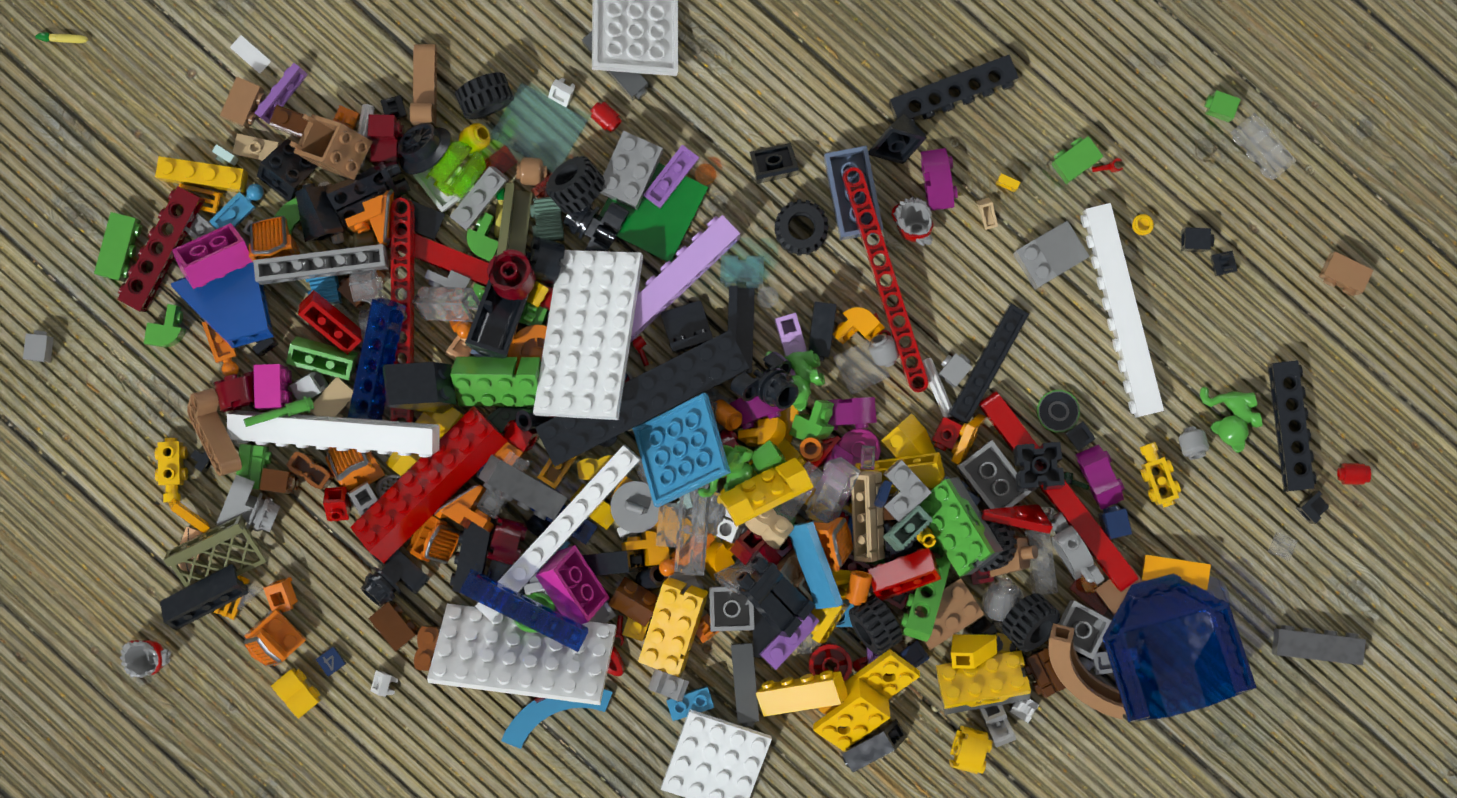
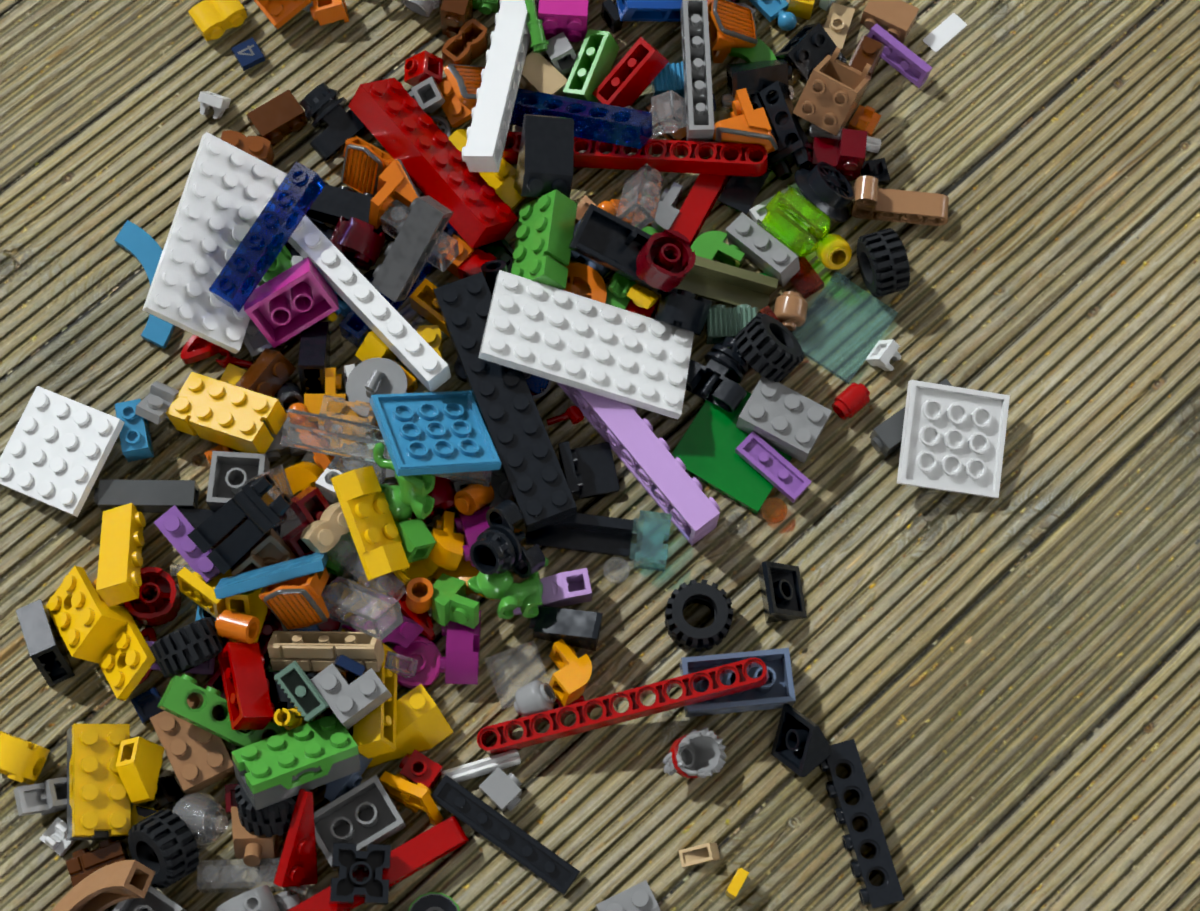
camera: 90 degrees right, 15 degrees down
(938, 179) = (742, 792): magenta brick -> none

